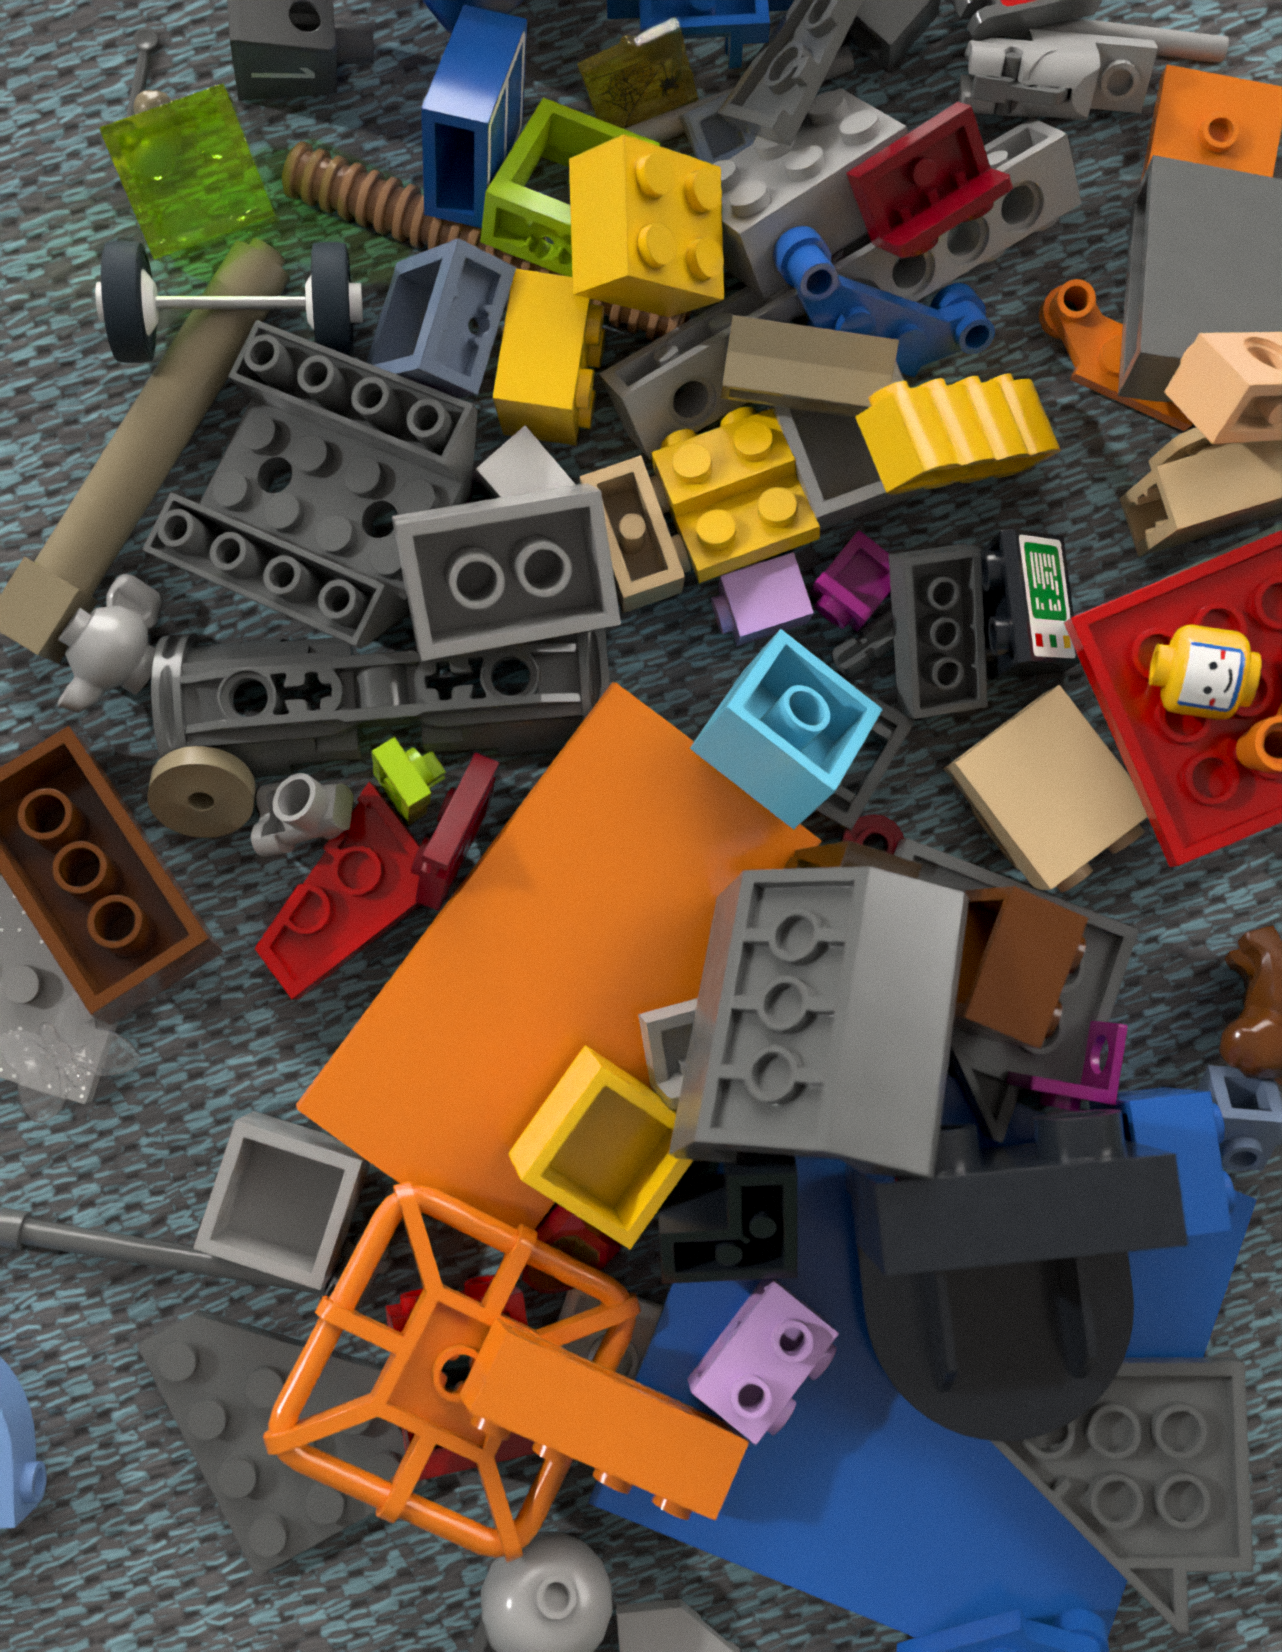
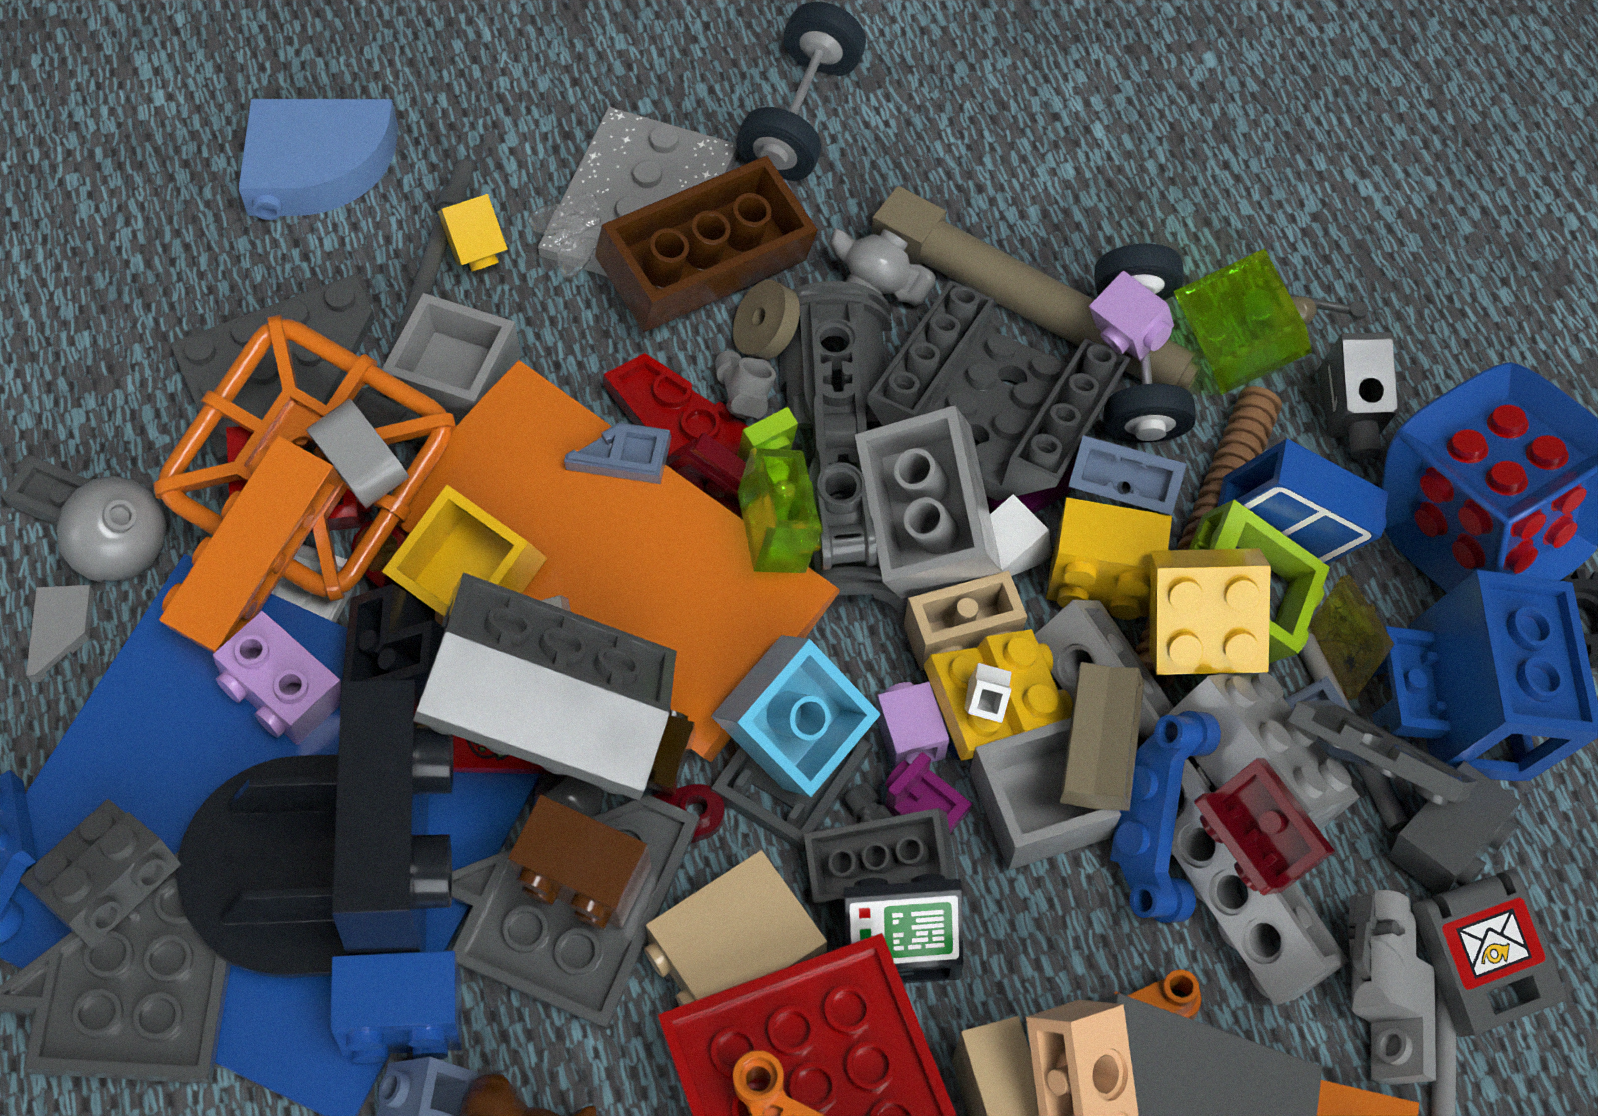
camera: 90 degrees right, 25 degrees down
(71, 1194) = (473, 232): none -> yellow brick
(208, 309) = (1131, 317): none -> lavender brick
(438, 957) = (624, 453): none -> sand blue tile
(472, 1304) = (357, 453): none -> light grey beam
(534, 753) = (779, 511): none -> clear neon green brick
(541, 672) = (846, 523): none -> dark grey piece
(764, 498) = (988, 692): none -> white piece
(955, 431) = (1049, 860): yellow brick -> none
(1029, 1531) = (100, 872): none -> dark grey plate
(1095, 1084) = (466, 933): magenta bracket -> none
(1205, 672) = (826, 1025): head -> none

